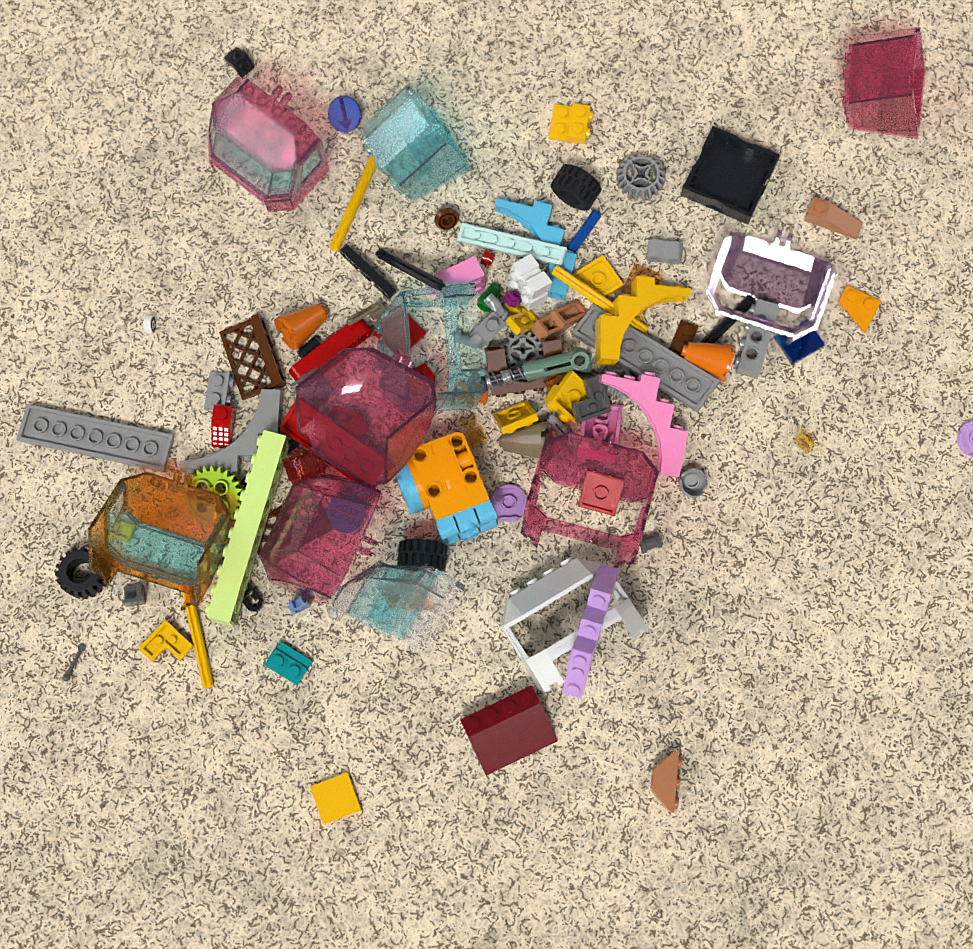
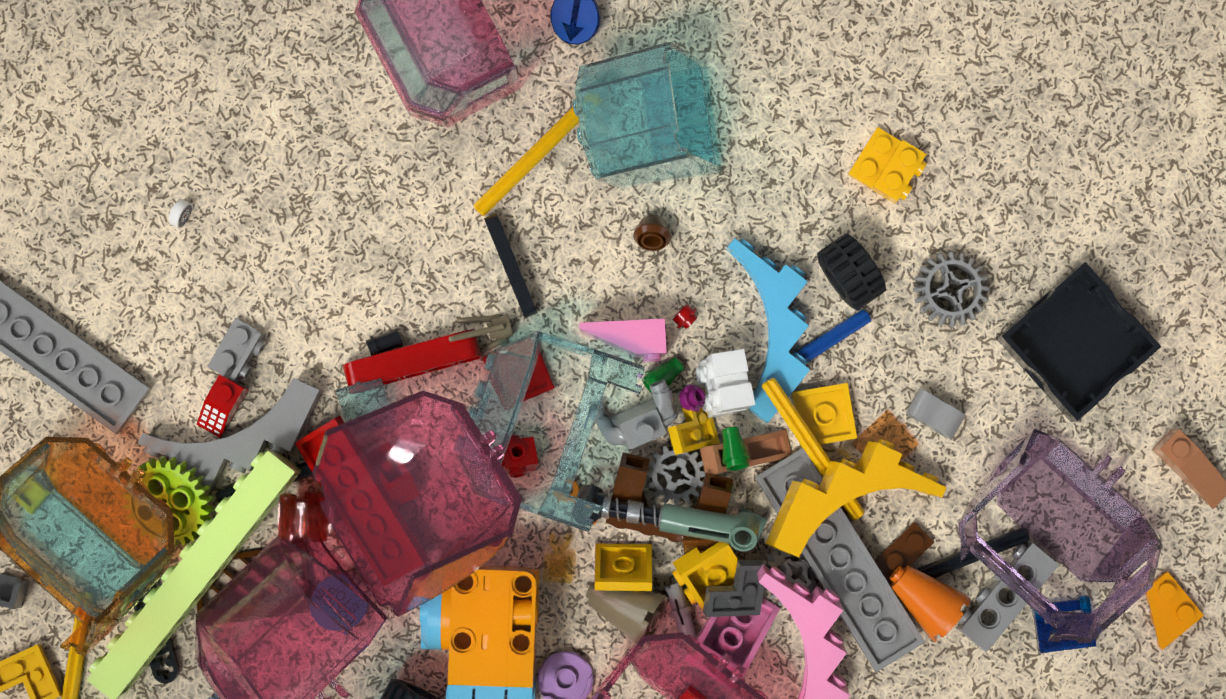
camera: 20 degrees right, 10 degrees up
(265, 348) = (325, 327): reddish brown fence -> none
(300, 324) = (387, 306): orange cone -> none
(410, 269) = (566, 299): black axle -> none
(512, 244) = (727, 315): light aqua tile -> none
(552, 317) = (734, 450): none -> green cone

